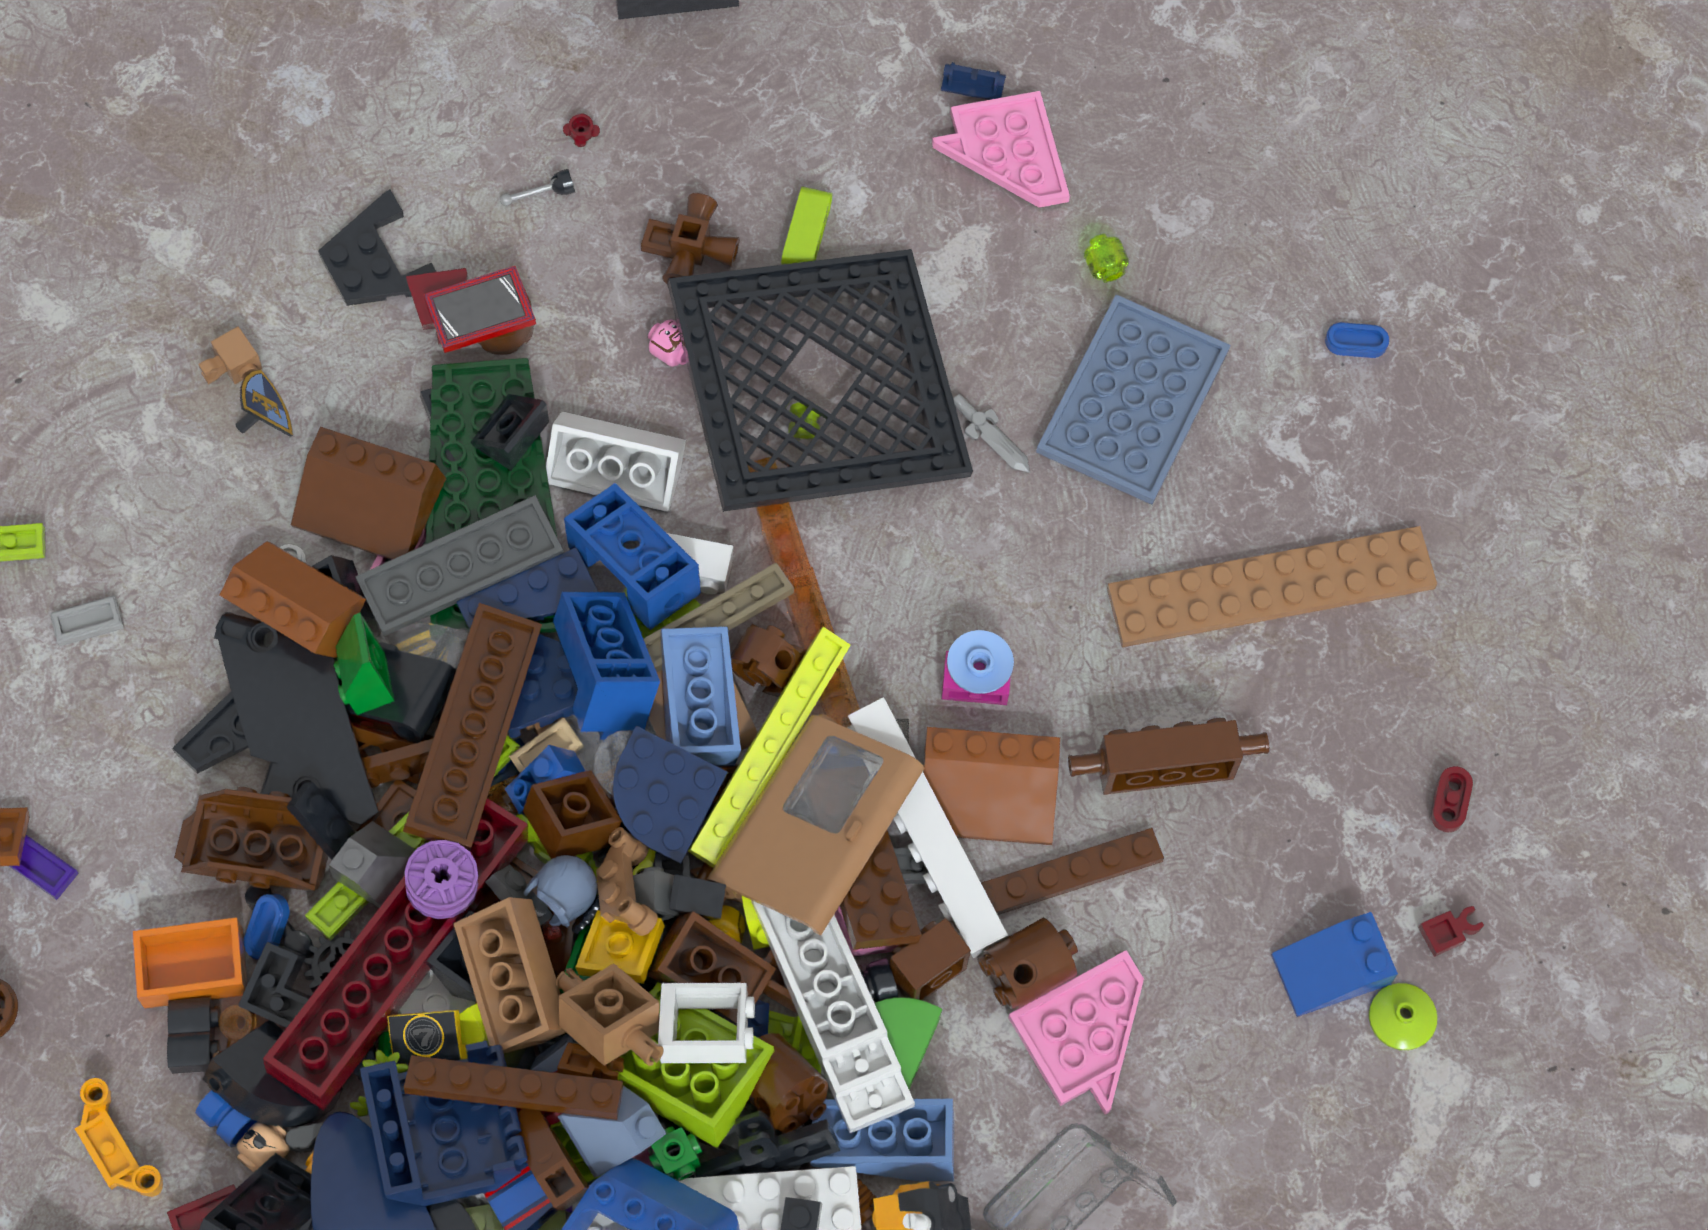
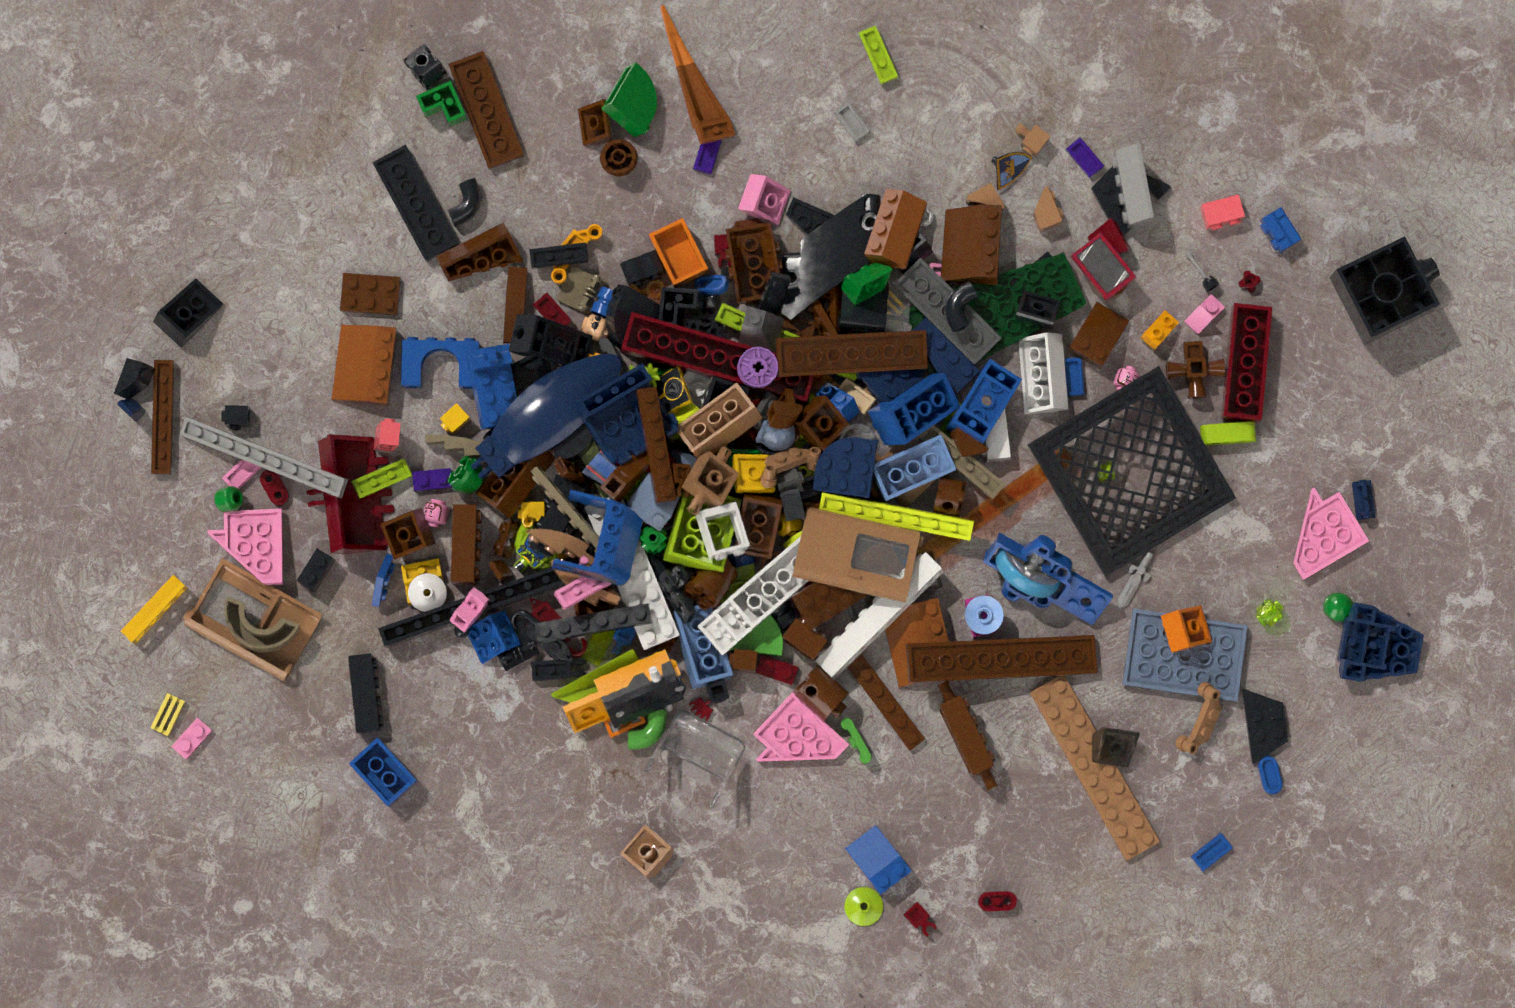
camera: 75 degrees right, 15 degrees up
(111, 1169) = (558, 255): none -> black tile
(154, 796) = (764, 199): none -> bright pink slope
(187, 1153) = (580, 290): none -> dark tan hinge
(209, 892) = (721, 244): none -> dark red plate
(293, 296) = (1084, 157): none -> dark purple tile
(293, 454) = (985, 196): none -> medium nougat slope
(355, 374) = (1046, 213): none -> medium nougat slope
(369, 227) = (1133, 186): none -> light grey slope
(455, 540) = (956, 305): none -> black cylinder
(460, 130) = (1222, 212): none -> coral brick
(520, 61) = (1280, 230): none -> blue brick
(532, 857) = (784, 412): none -> reddish brown brick
(585, 364) = (1098, 335): none -> reddish brown slope
(608, 206) = (1204, 314): none -> bright pink slope
(610, 275) = (1159, 330): none -> light orange plate
(636, 417) = (1074, 376): none -> blue tile
(688, 598) = (966, 444): none -> reddish brown slope
(703, 161) = (1246, 362): none -> dark red brick
(933, 1072) = (743, 661): none -> reddish brown brick
(946, 563) = (1035, 575): none -> blue piece
(961, 1031) = (776, 670): none -> dark red plate
(972, 1137) = (717, 692): none -> black brick
(988, 1178) = (701, 708): none -> dark red piece
(1058, 664) = (1001, 658): none -> reddish brown plate
(1096, 378) = (1186, 628): none -> orange slope
(1122, 936) = (856, 740): none -> bright green plate
(1125, 165) = (1337, 606): none -> green hair
(1203, 128) = (1376, 645): none -> dark blue wedge
(1242, 391) = (1205, 721): none -> medium nougat plate
(1251, 540) = (1113, 746): none -> clear smoke slope
(1276, 323) = (1264, 724): none -> black wing
(1455, 459) = (1211, 852): none -> blue tile

